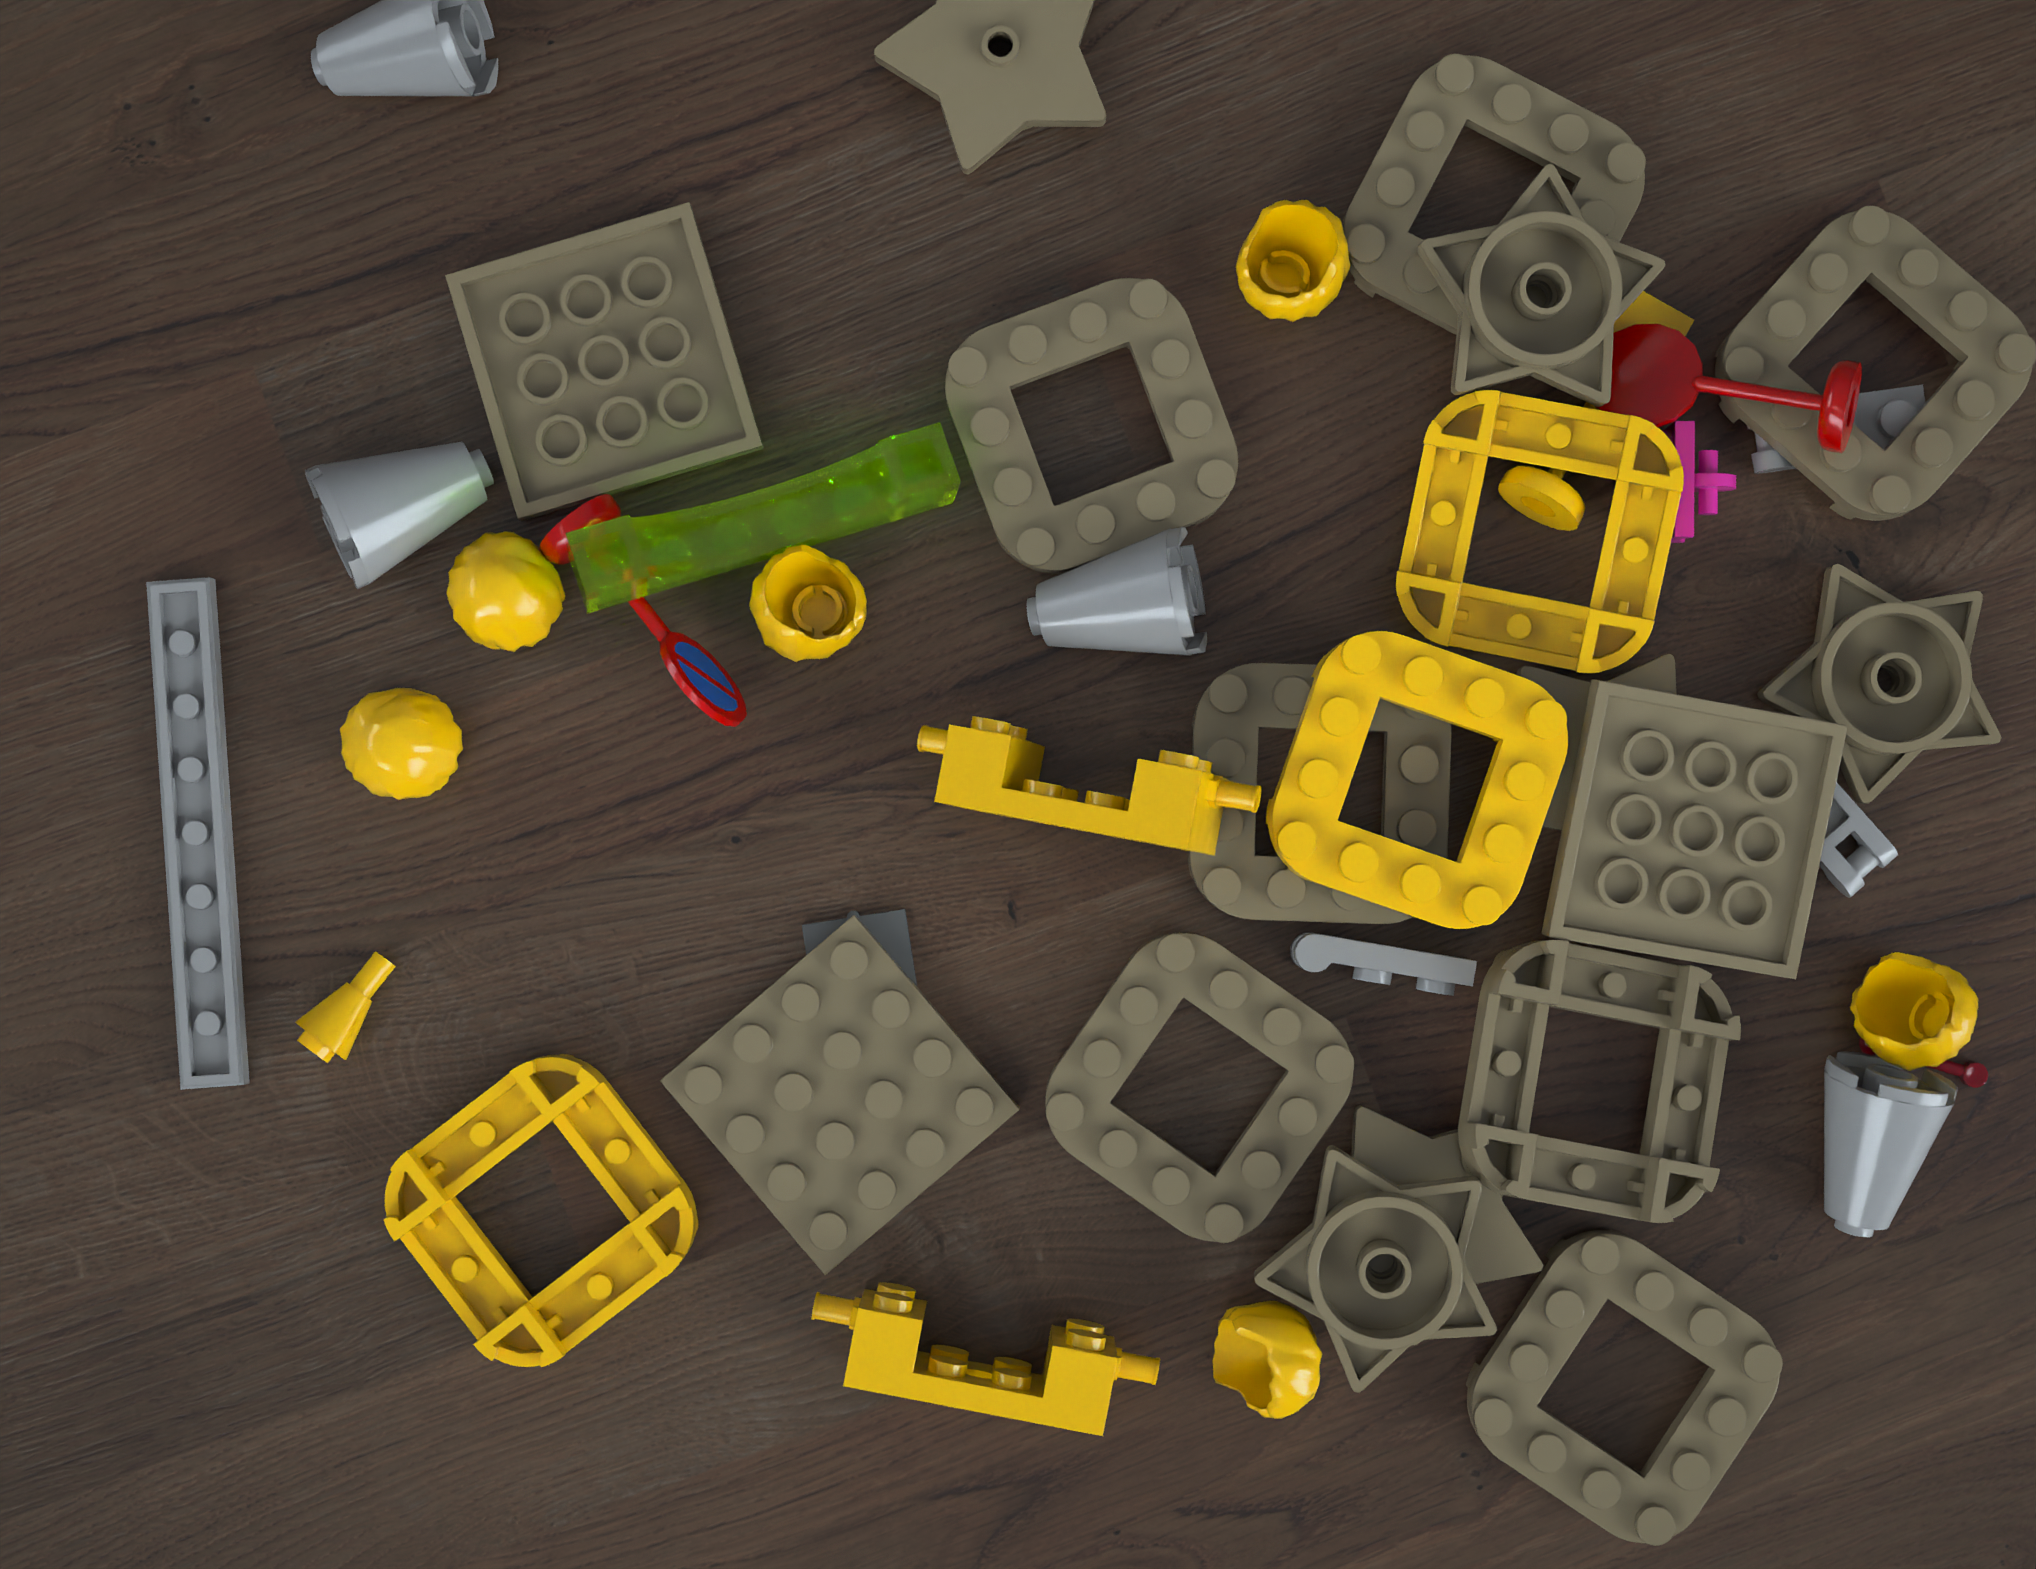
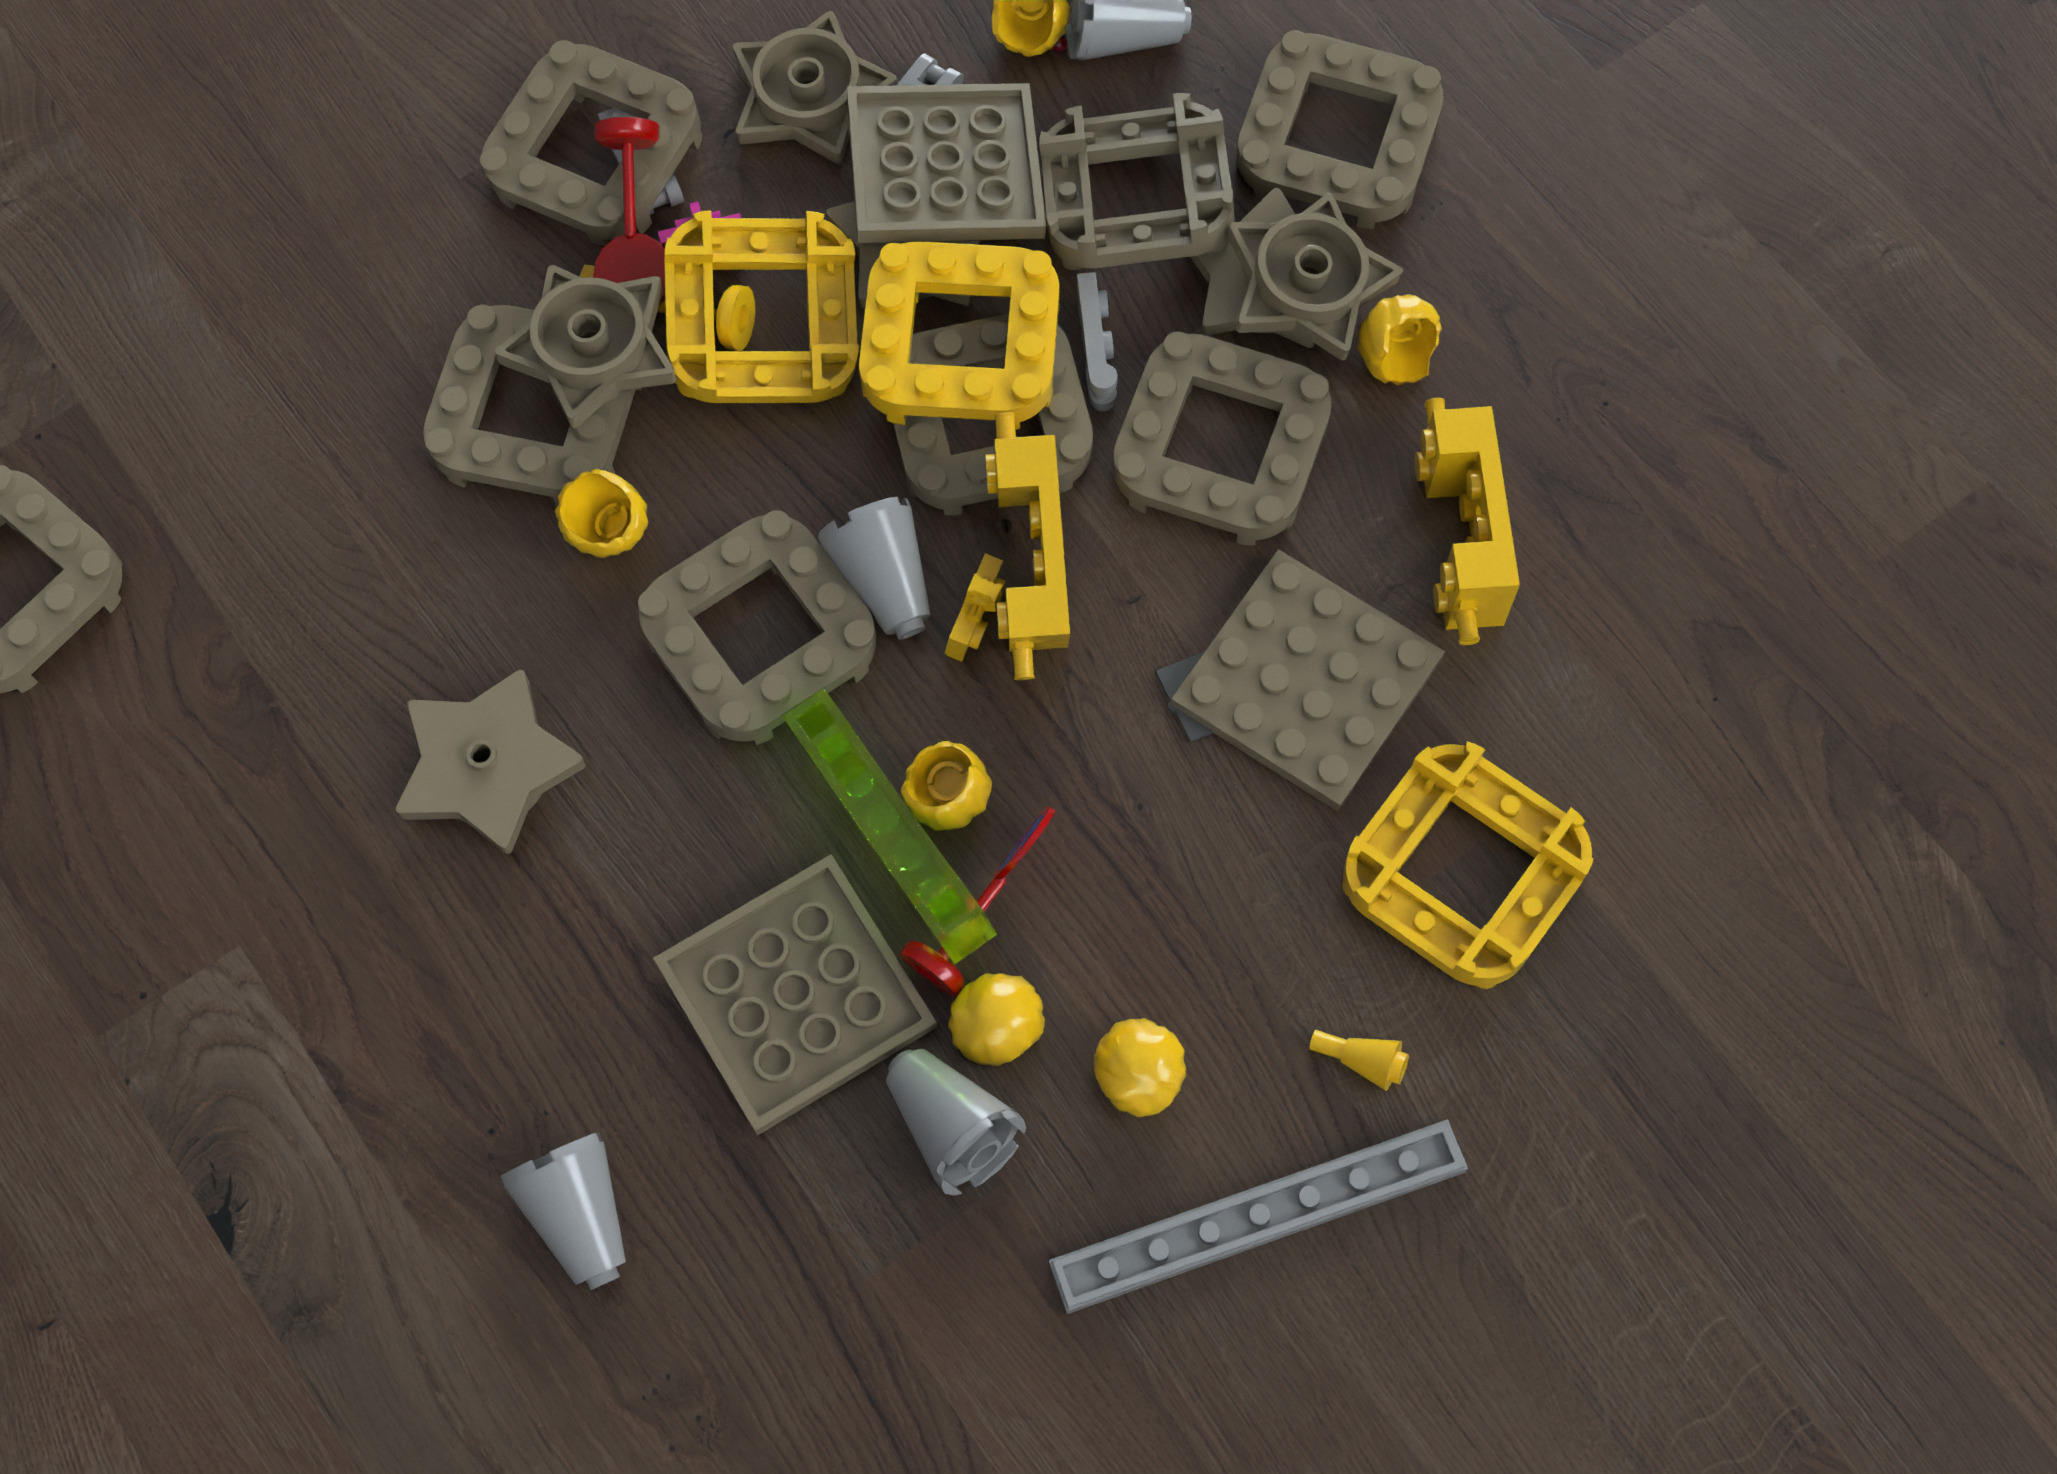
camera: 110 degrees left, 20 degrees down
(1039, 706) = (981, 596): none -> yellow hinge

